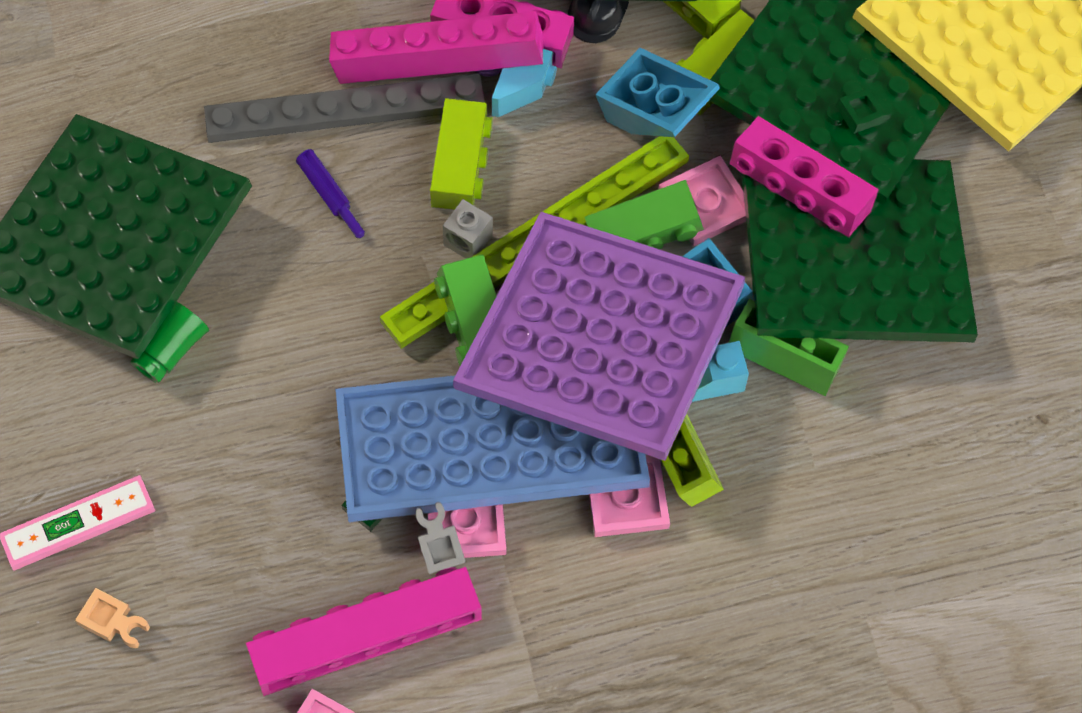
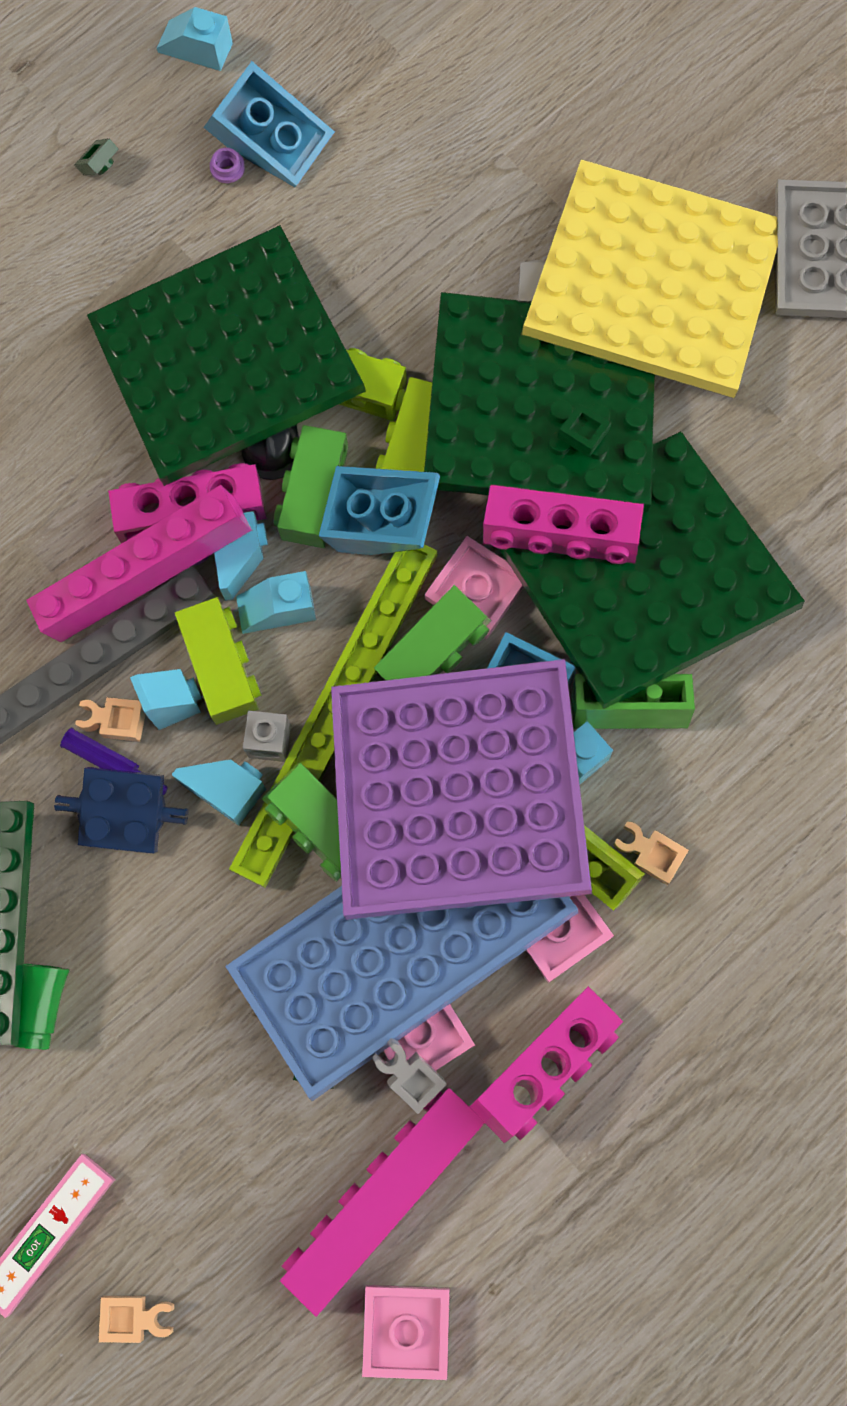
camera: 20 degrees left, 10 degrees up
(318, 230) = (121, 810): none -> dark blue plate
(353, 161) = (117, 720): none -> light nougat plate
(403, 160) = (167, 696): none -> medium azure slope
(410, 252) = (224, 786): none -> medium azure slope
(534, 134) = (276, 603): none -> medium azure slope
(607, 569) = (497, 1104): none -> dark pink brick
(609, 53) = (309, 484): none -> bright green brick
(741, 480) = (657, 855): none -> light nougat plate

